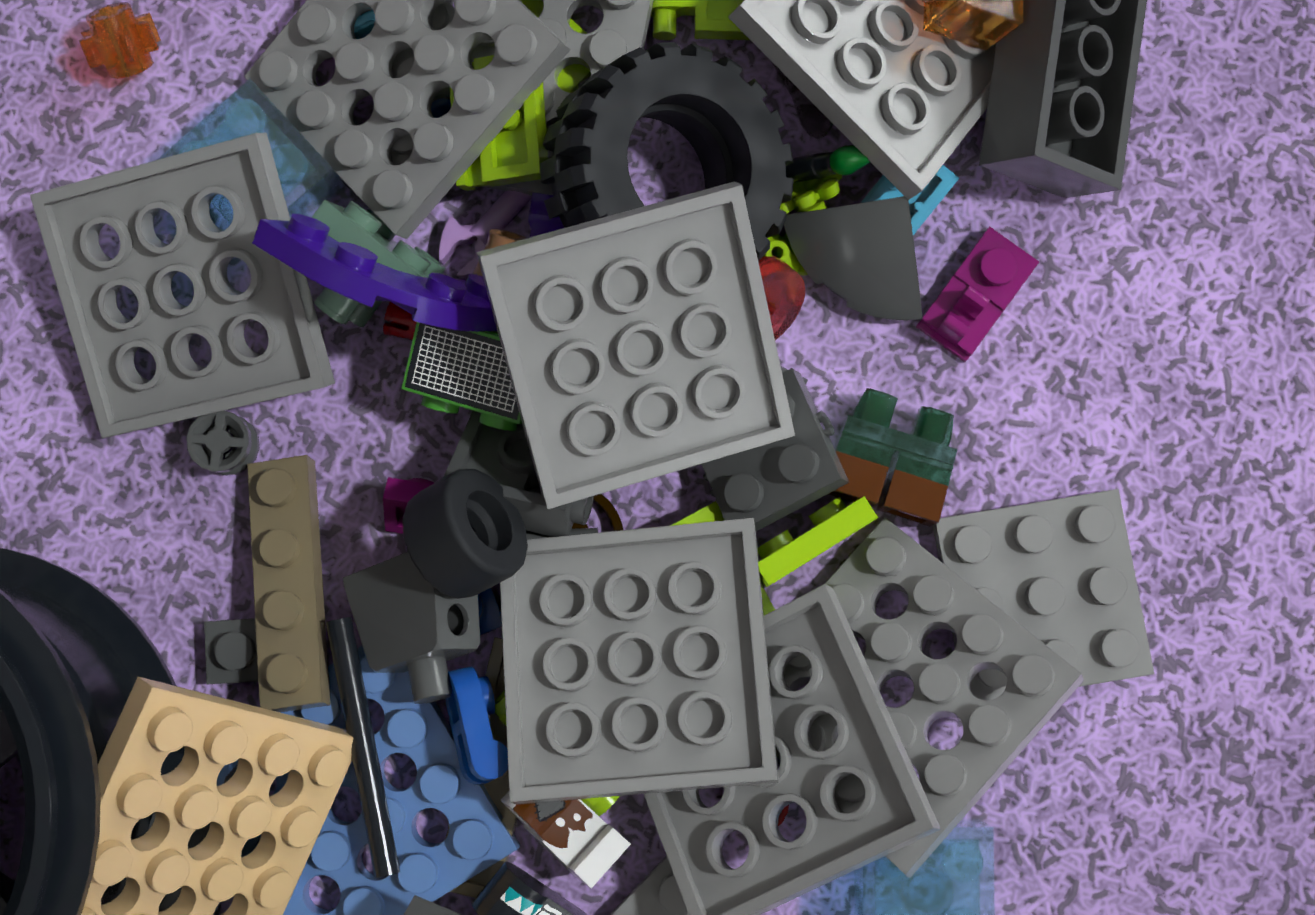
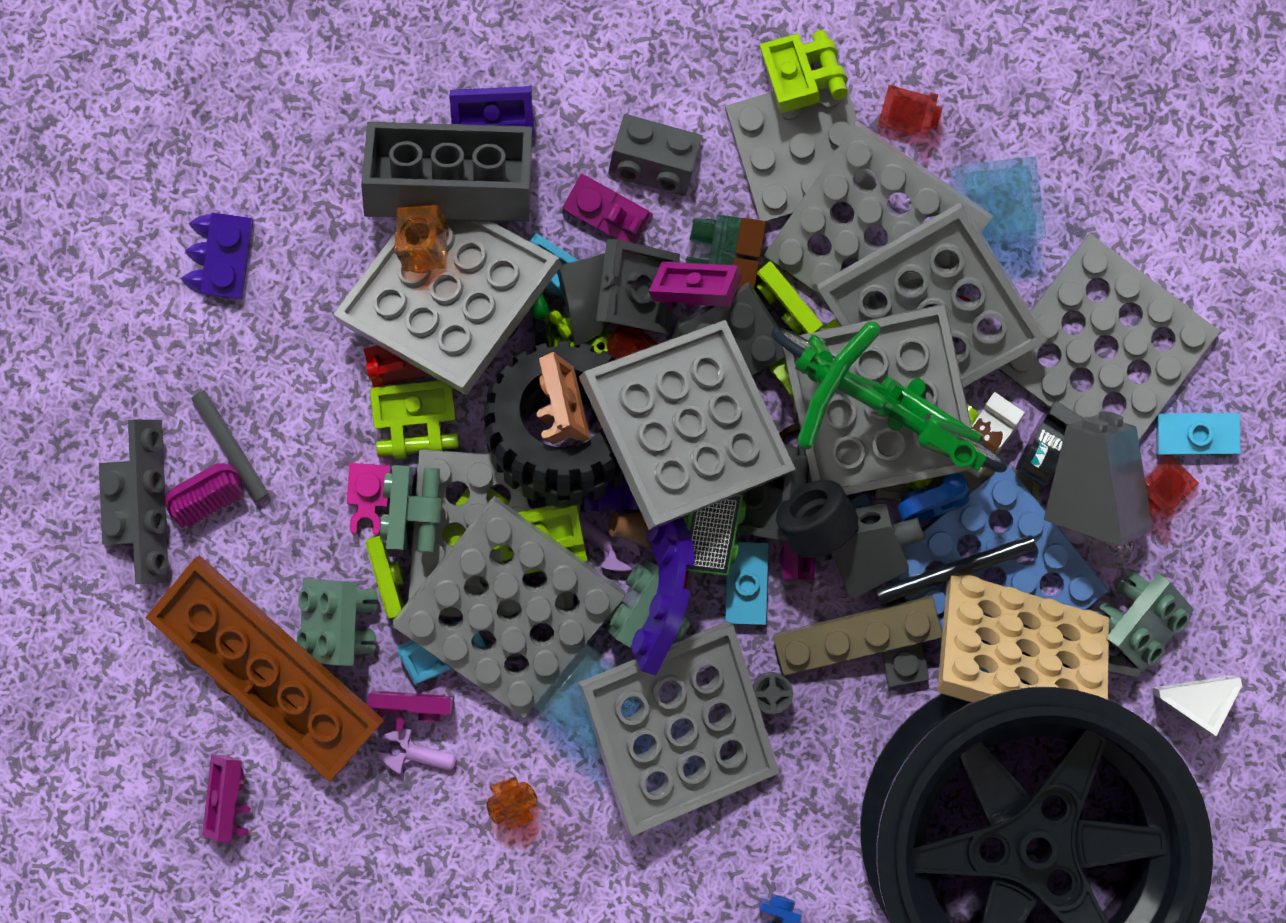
camera: 100 degrees left, 5 degrees up
(392, 428) = (747, 585): none -> medium azure plate
(691, 576) = (902, 404): none -> green piece
(701, 156) = (566, 406): none -> nougat plate
(854, 398) = (695, 284): none -> magenta plate
(860, 318) = (626, 287): none -> dark grey plate
(1055, 373) = (654, 155): none -> dark grey bracket
(1079, 770) = (909, 111): none -> clear red bracket
(1153, 145) = (493, 106): none -> dark purple plate
(1158, 592) = (792, 76): none -> lime plate

